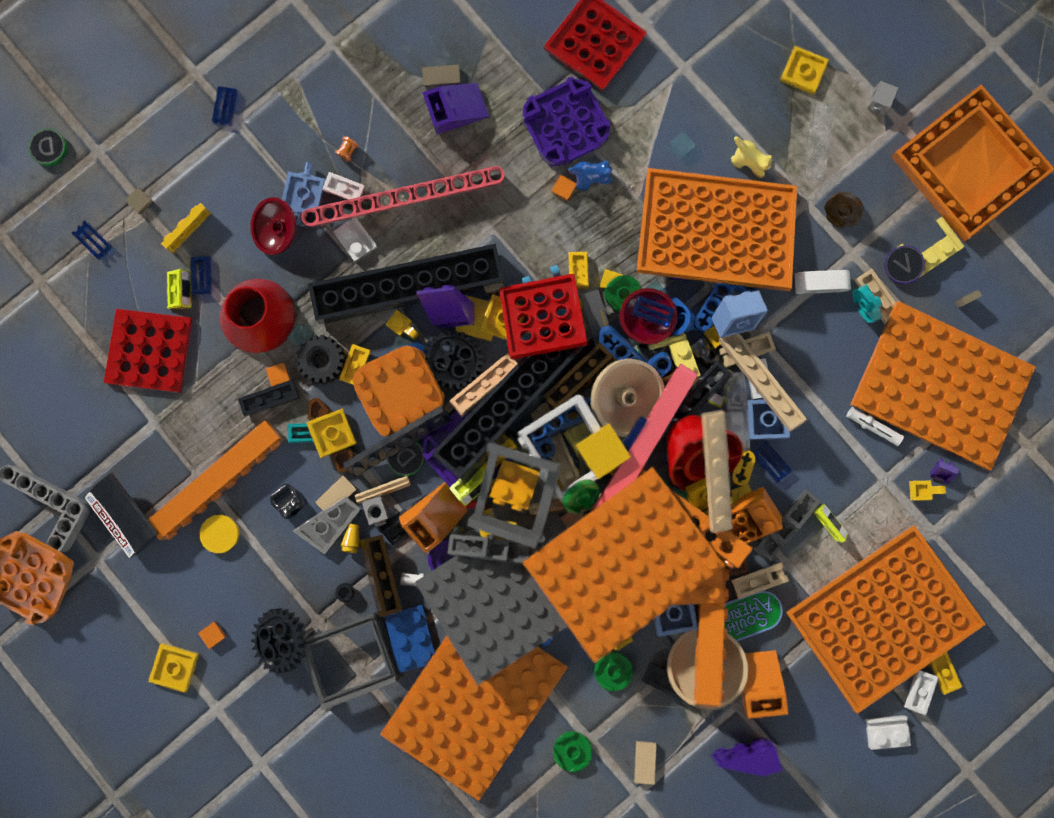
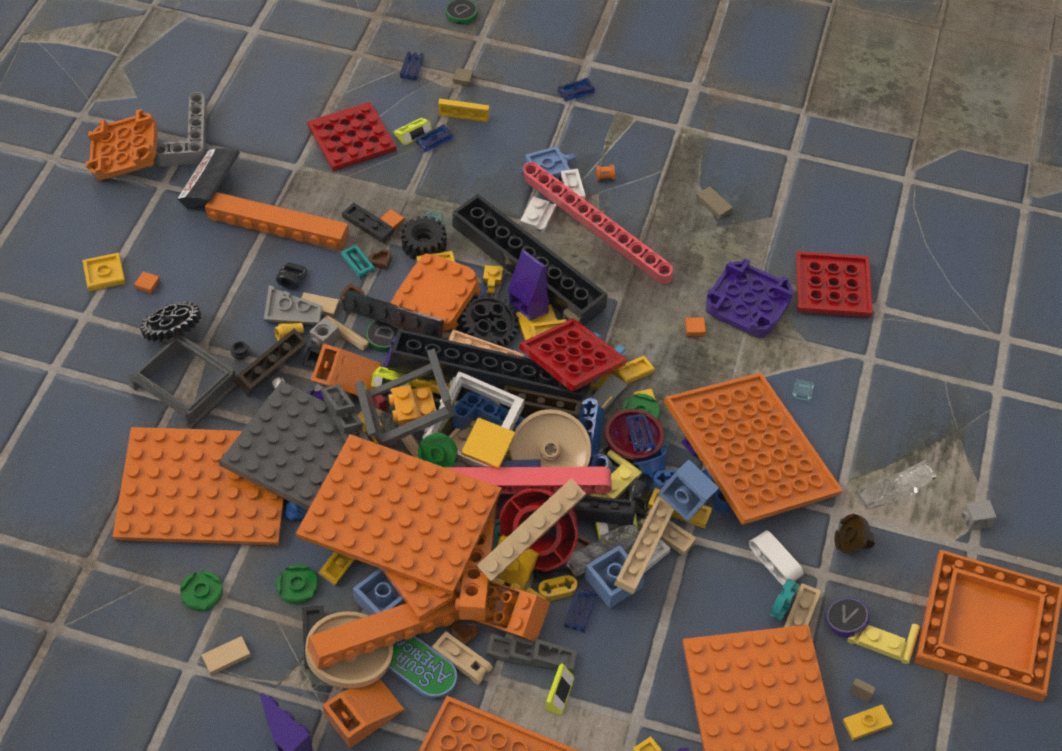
camera: 50 degrees right, 30 degrees down
(219, 533) = (234, 246): yellow tile -> none
(273, 226) = (507, 156): dark red dish -> none
(273, 326) = (429, 180): red cone -> none
(331, 433) = (368, 274): yellow tile -> none
(410, 638) = (229, 412): blue plate -> none
(455, 106) = (696, 219): dark purple slope -> none
(591, 173) = (720, 334): blue animal -> none
(750, 156) = (836, 439): light yellow animal -> none
(804, 70) = (948, 445): yellow tile -> none
(868, 422) = (678, 670): white pin -> none
(991, 313) = (867, 722): none -> yellow plate

